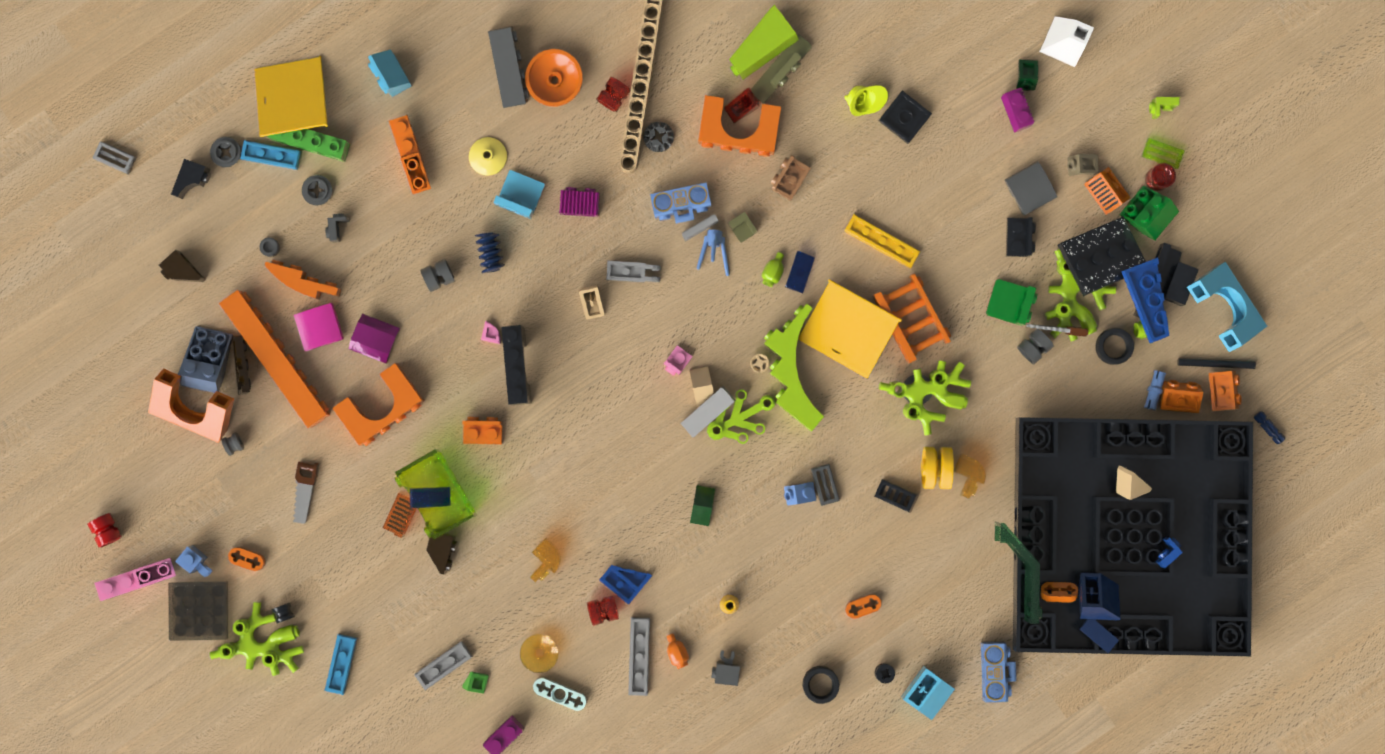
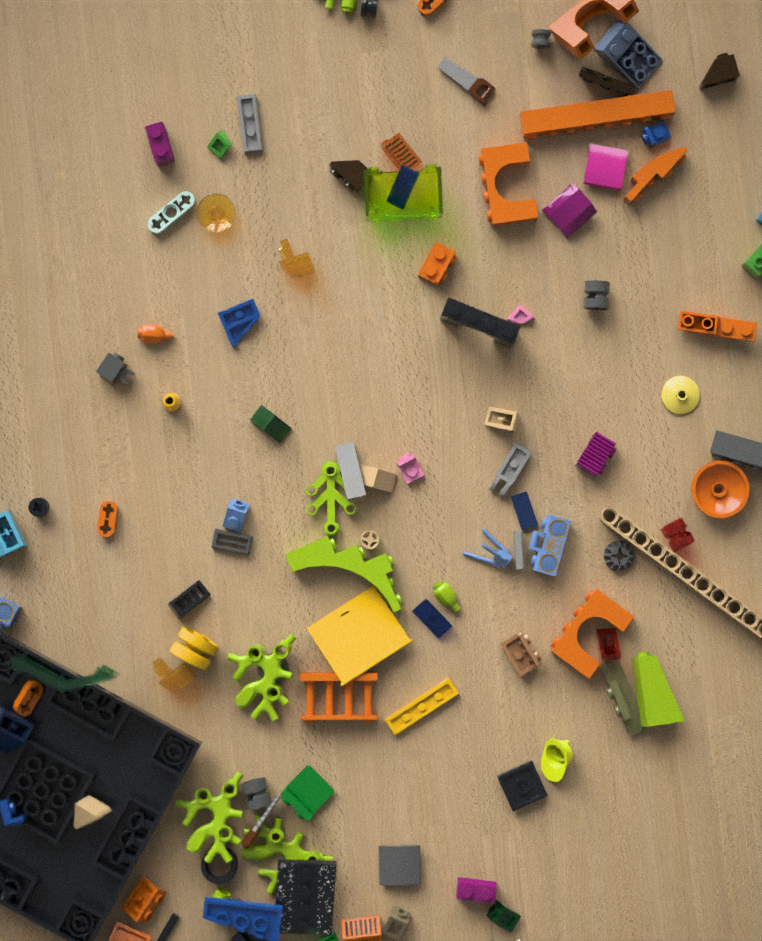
camera: 115 degrees right, 0 degrees up
(266, 297) = (655, 134): none -> blue bracket
(269, 247) = (699, 160): dark grey tile -> none
(310, 184) = (737, 226): dark grey gear -> none
(332, 231) = (685, 223): dark grey bracket -> none
(340, 664) = (298, 35): dark azure tile -> none
(489, 252) = (593, 352): dark blue piece -> none
(519, 194) = (631, 405): medium azure bracket -> none
(602, 610) = (224, 287): clear red wheel -> none
(639, 656) = (167, 299): light grey tile -> none
(662, 240) = (524, 510): none -> dark blue piece
(742, 227) = (498, 588): olive panel -> none
(806, 684) = (44, 442): black tyre -> none
(1019, 237) = (361, 831): black bracket -> none
(1067, 368) = (222, 811): none -> lime plant
(1155, 390) = (161, 880): medium blue pin -> none

